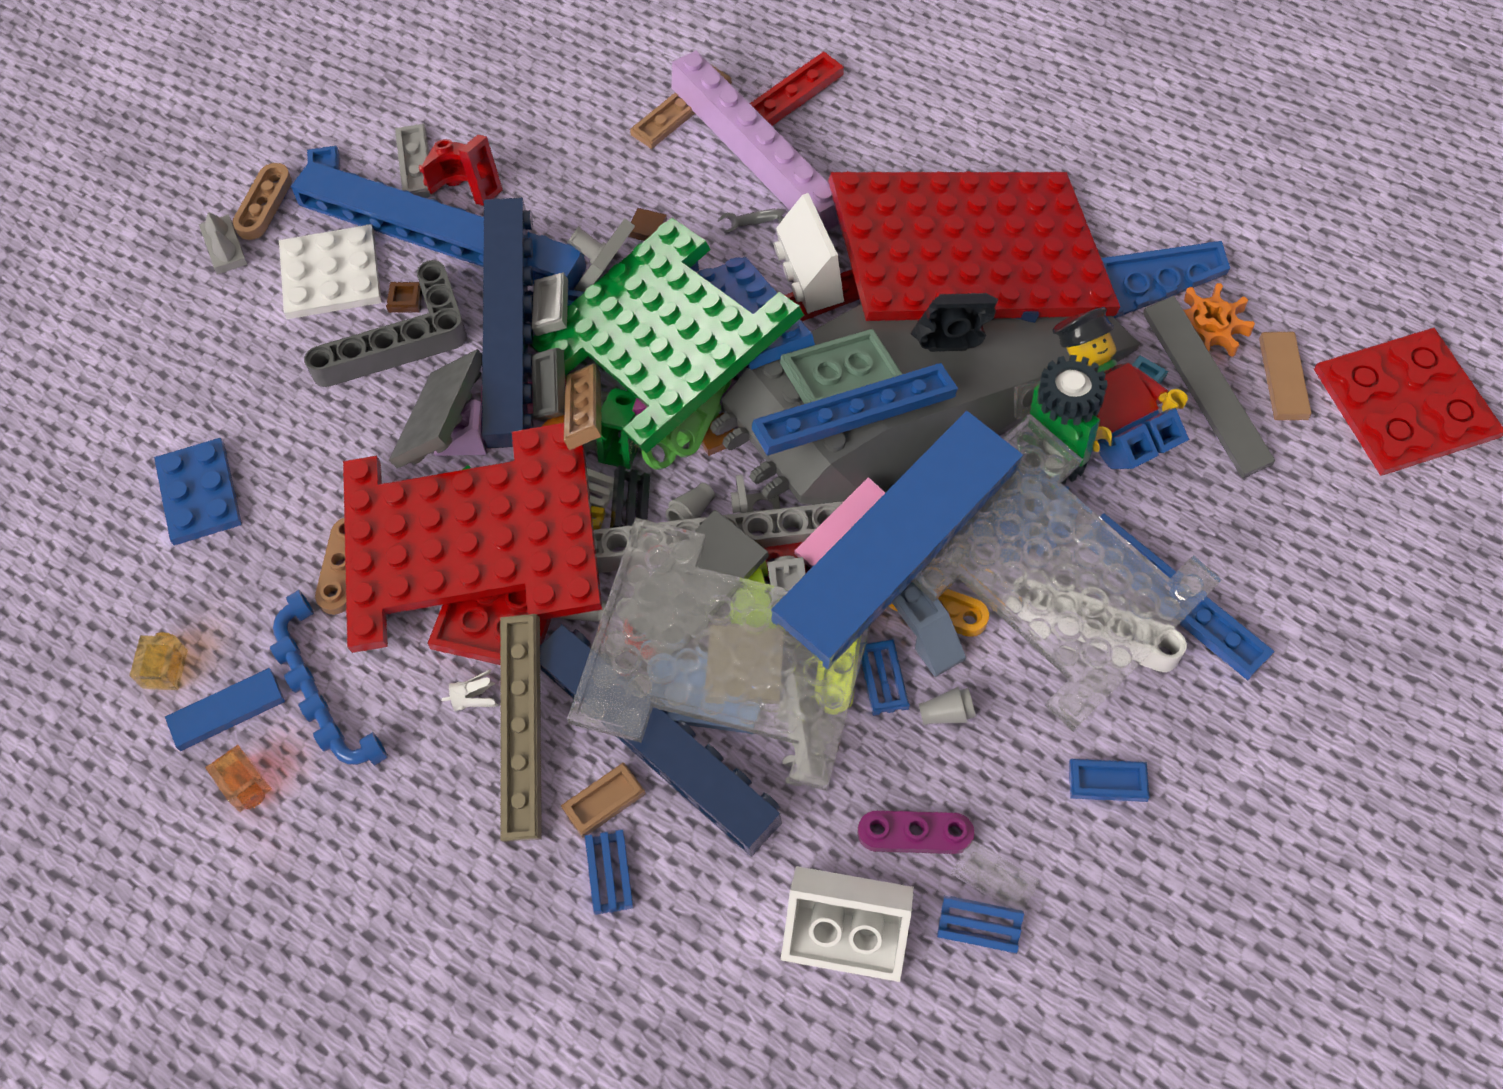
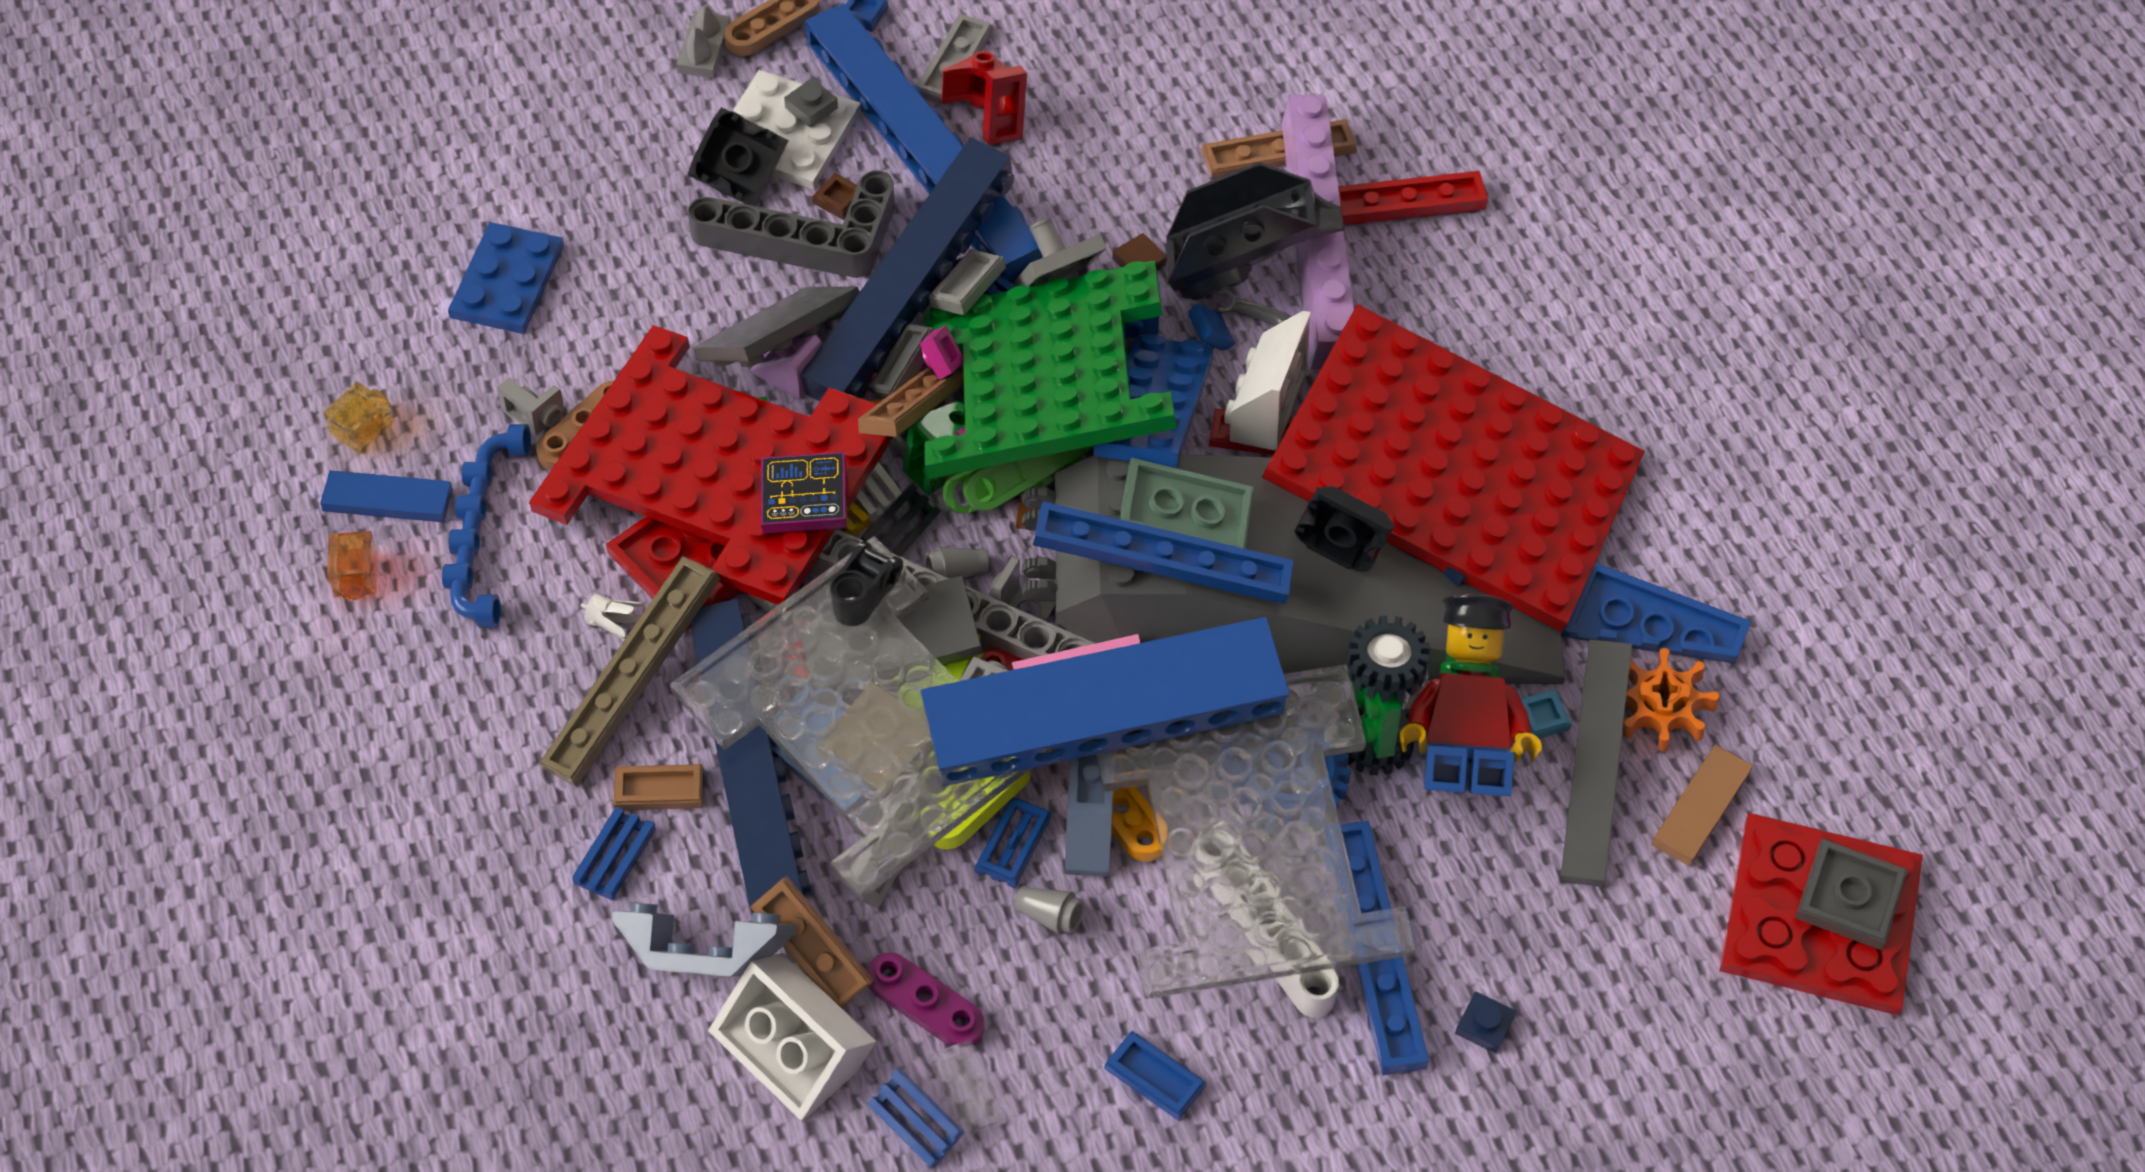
camera: 30 degrees right, 5 degrees down
(289, 578) = (527, 408): none -> light grey bracket
(312, 308) = (737, 157): none -> black slope
(338, 241) = (811, 102): none -> dark grey plate
(557, 517) = (803, 492): none -> black tile
(575, 361) = (941, 352): none -> dark pink plate
(659, 552) = (868, 578): none -> black piece
(687, 918) = (652, 935): none -> slope
(709, 161) = (1240, 223): none -> black slope
(734, 245) = (1211, 327): none -> blue tile
(812, 844) = (815, 944): none -> medium nougat tile
(1279, 601) = (1485, 1022): none -> dark blue plate
(1424, 376) = (1851, 894): none -> dark grey tile

